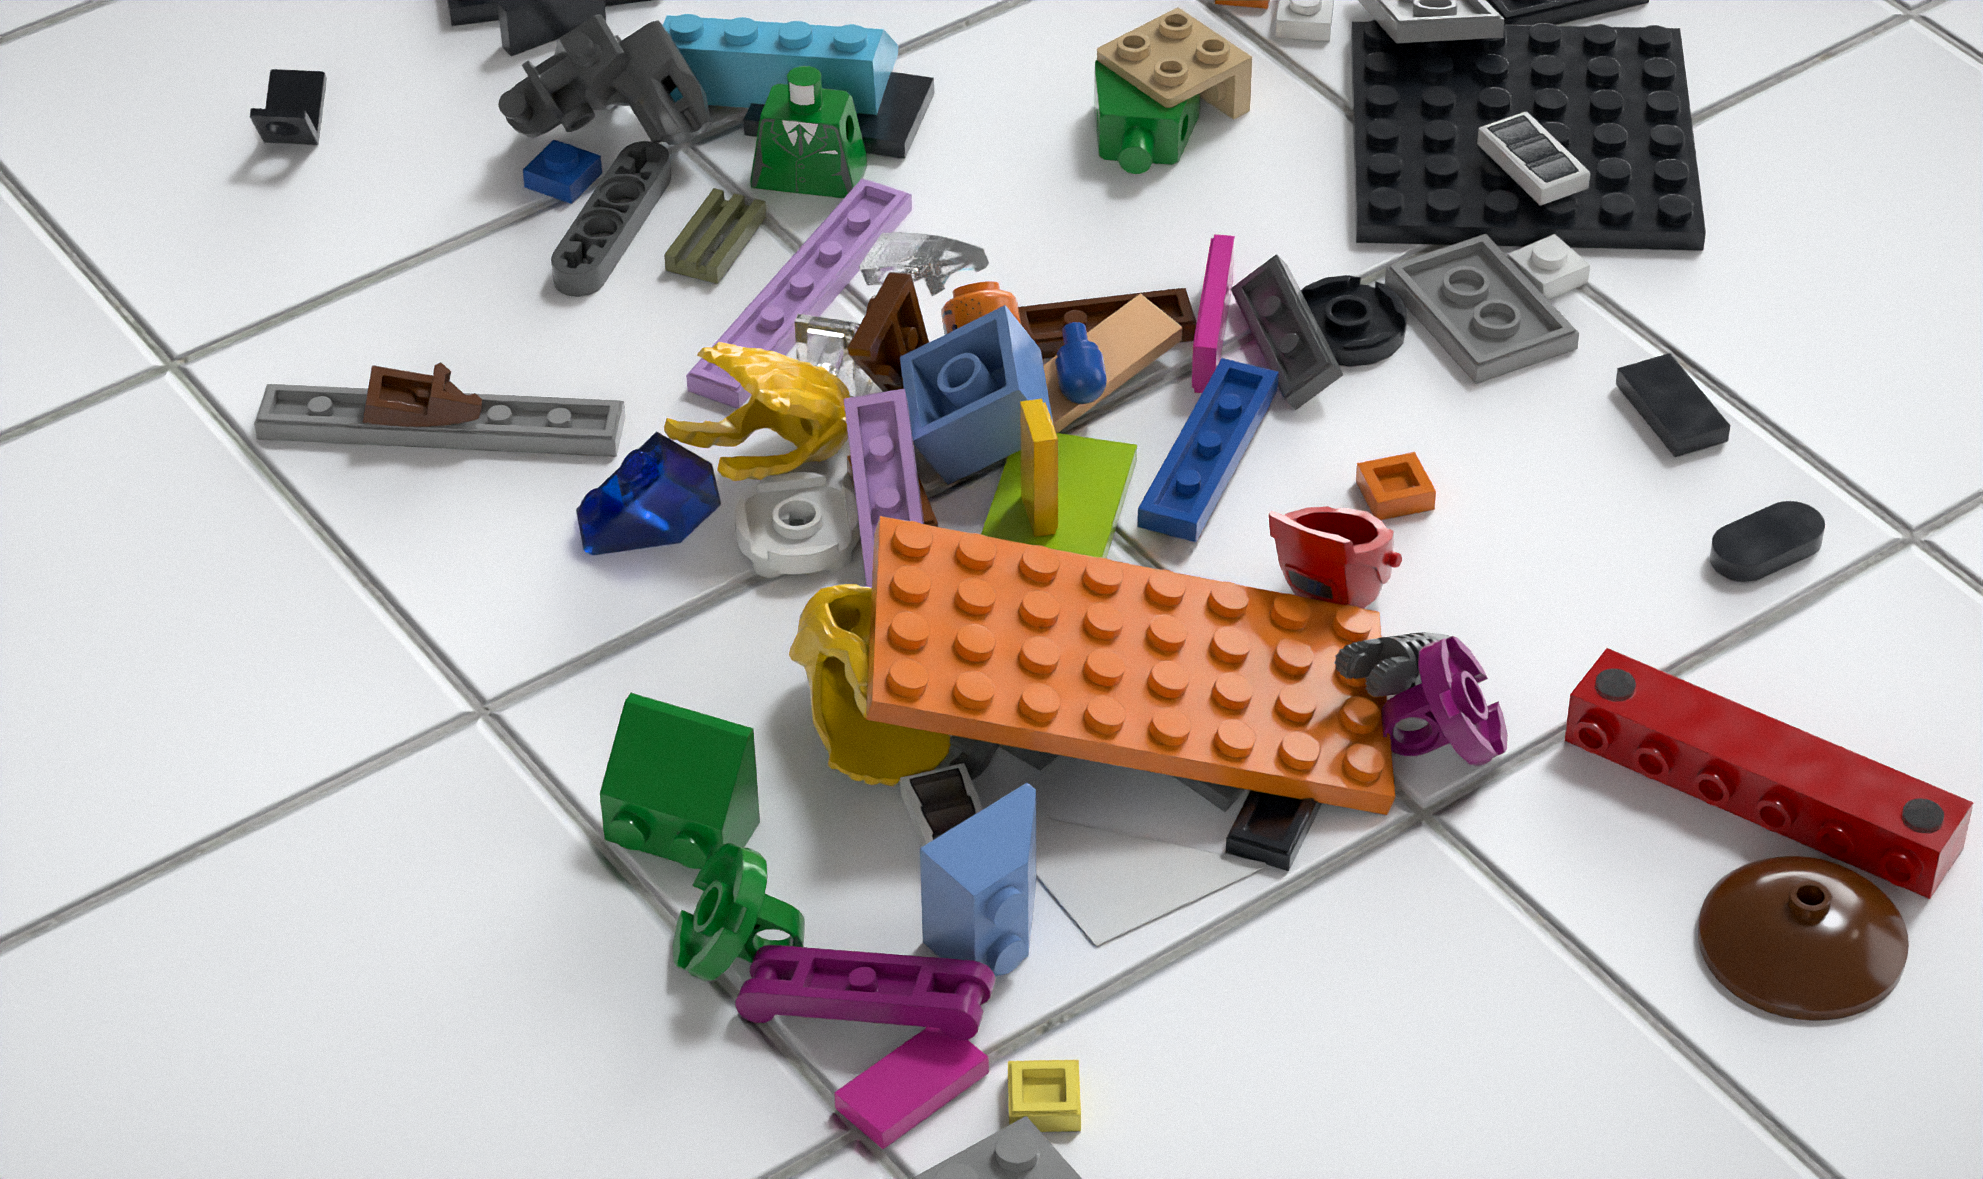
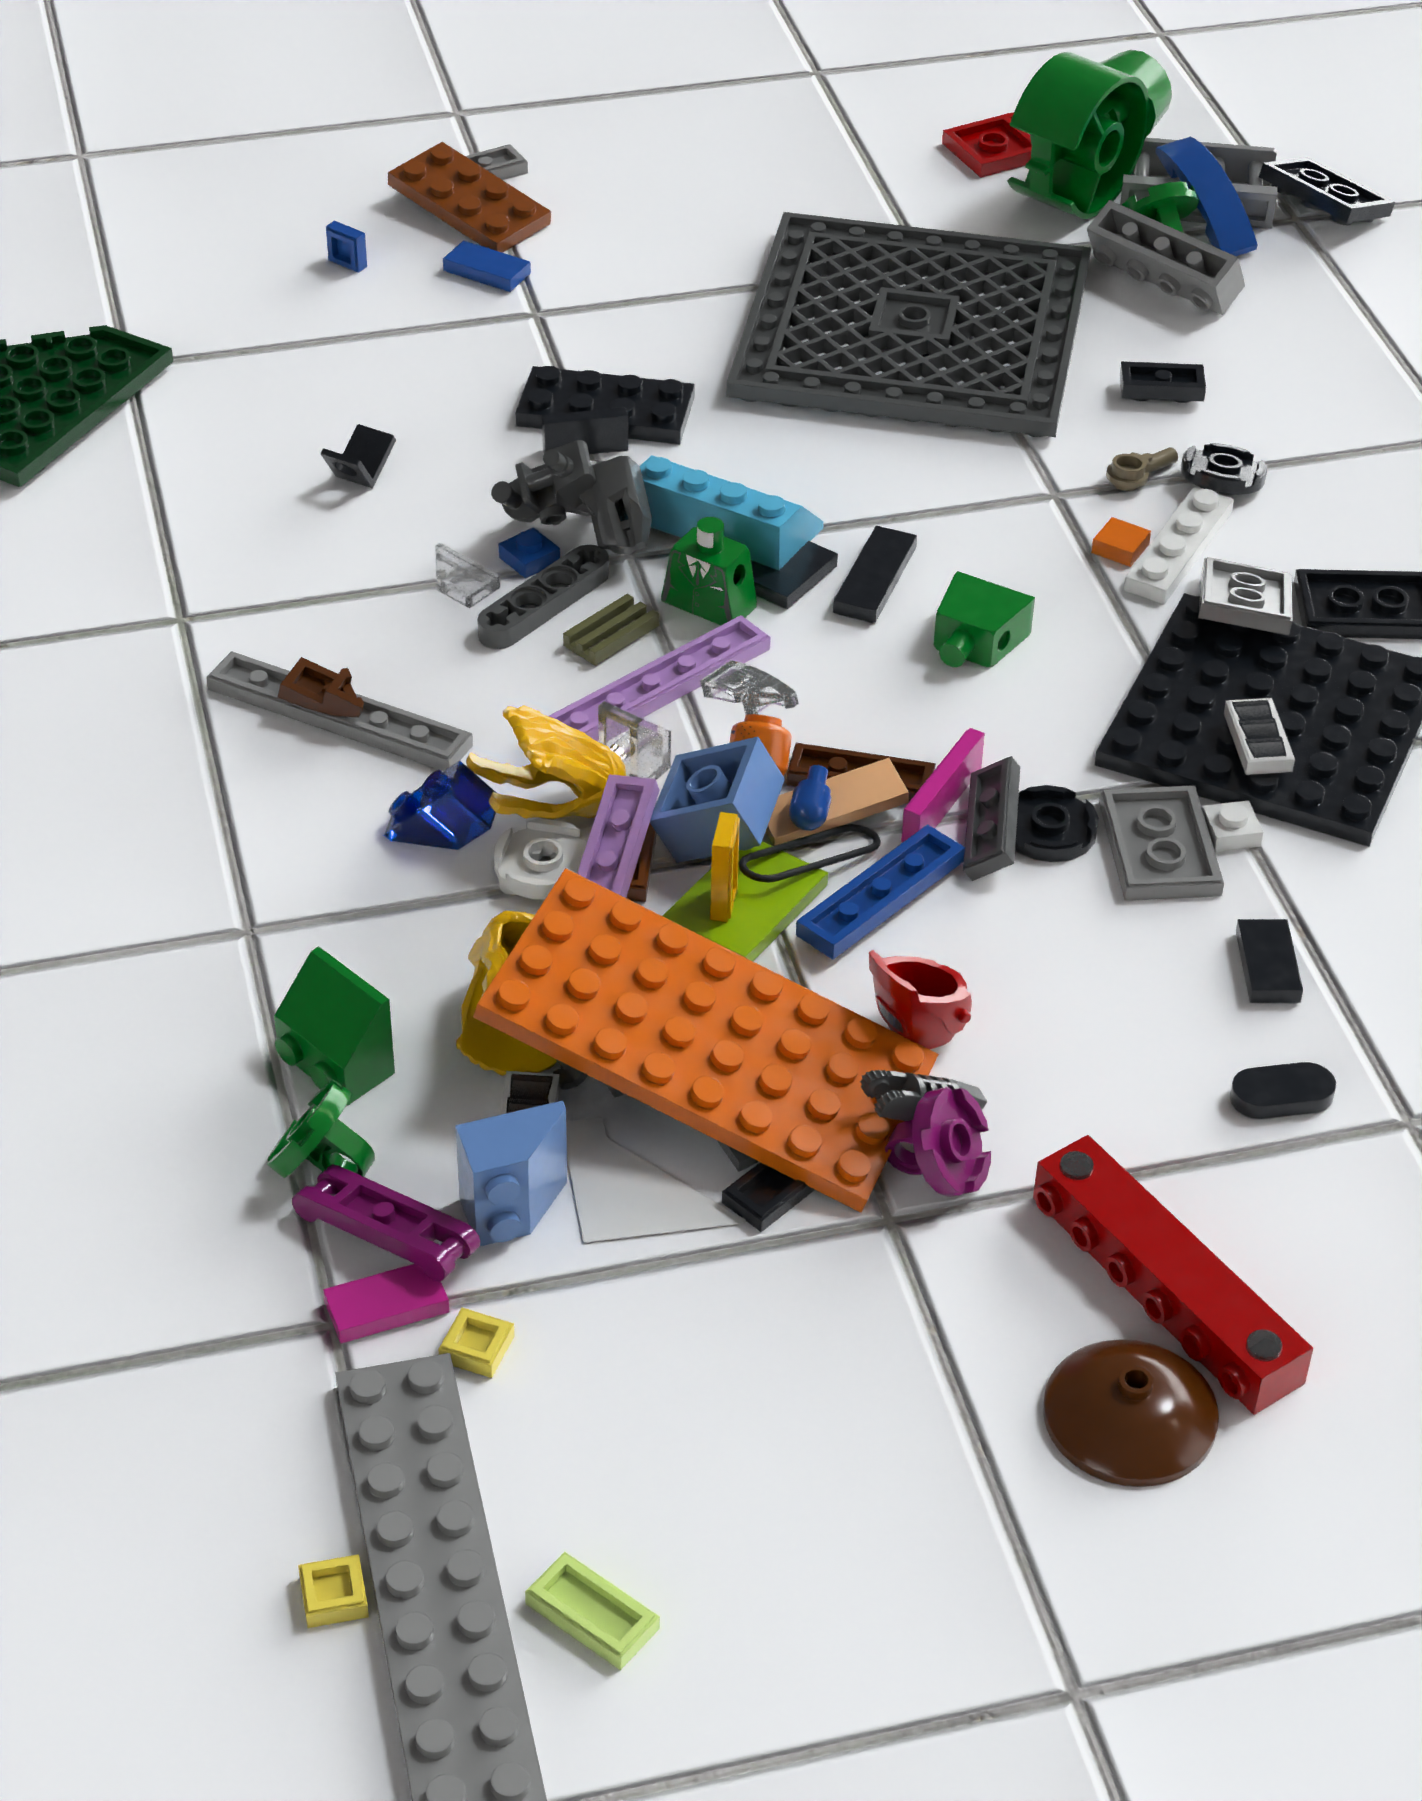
camera: 20 degrees right, 0 degrees up
(497, 221) = (462, 577): none -> clear tile
(889, 331) = (673, 731): reddish brown wing -> none
(987, 91) = (875, 574): none -> black tile
(1125, 436) = (812, 866): none -> black piece
(1179, 59) = (1021, 586): tan bracket -> none
(1395, 486) = (1011, 961): orange tile -> none

